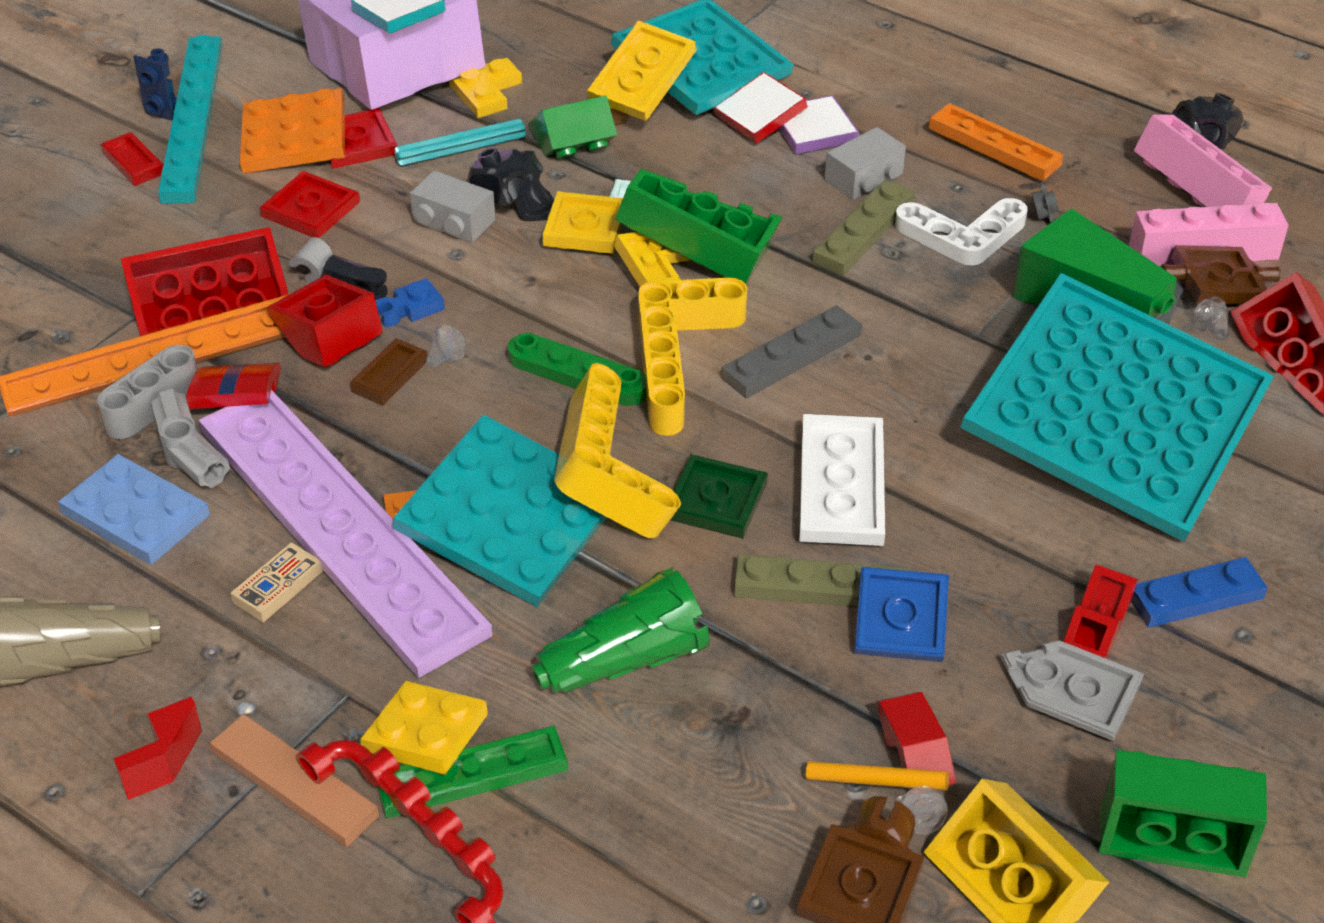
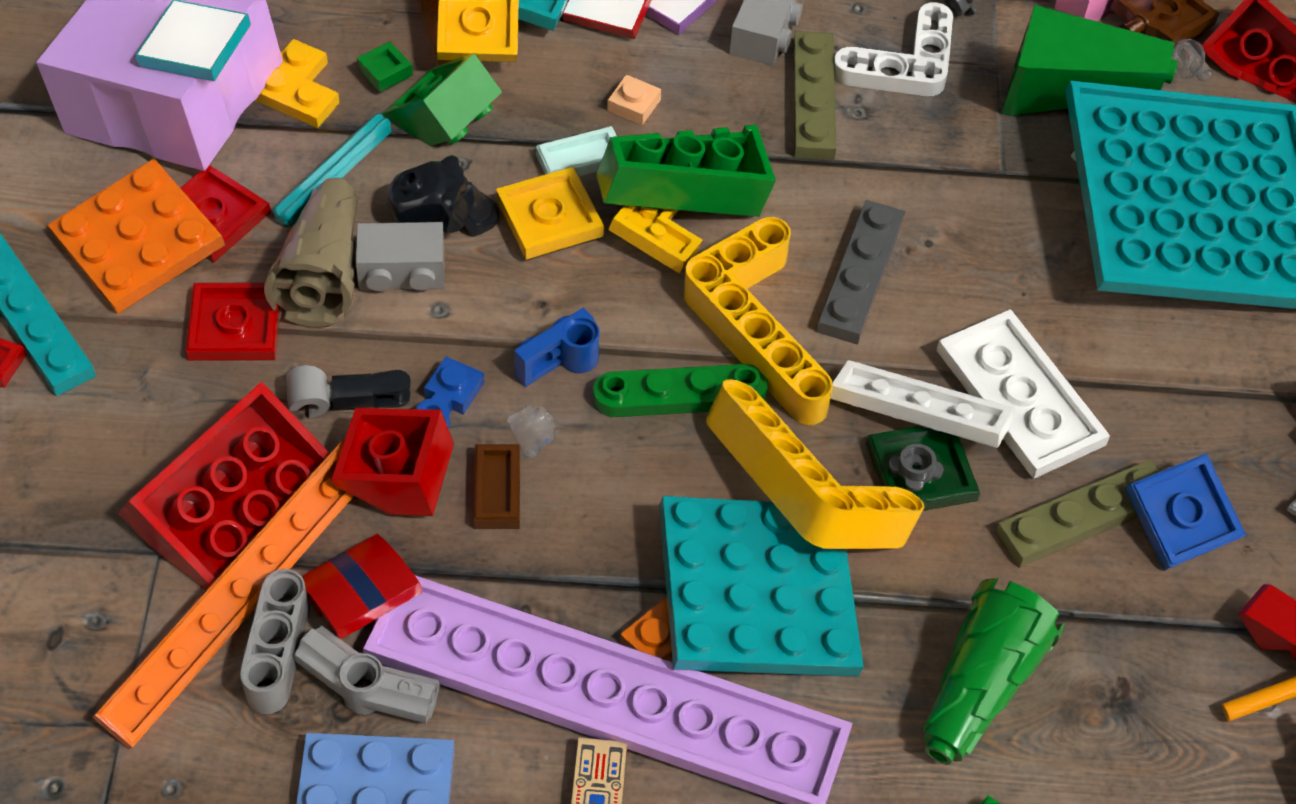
camera: 35 degrees left, 10 degrees up
(381, 183) = (315, 264): none -> dark tan cone
(510, 301) = (569, 343): none -> blue plate
(552, 93) = (384, 66): none -> green plate
(702, 484) = (919, 456): none -> dark grey plate
(719, 179) = (634, 100): none -> light nougat plate
(748, 447) = (922, 403): none -> white plate

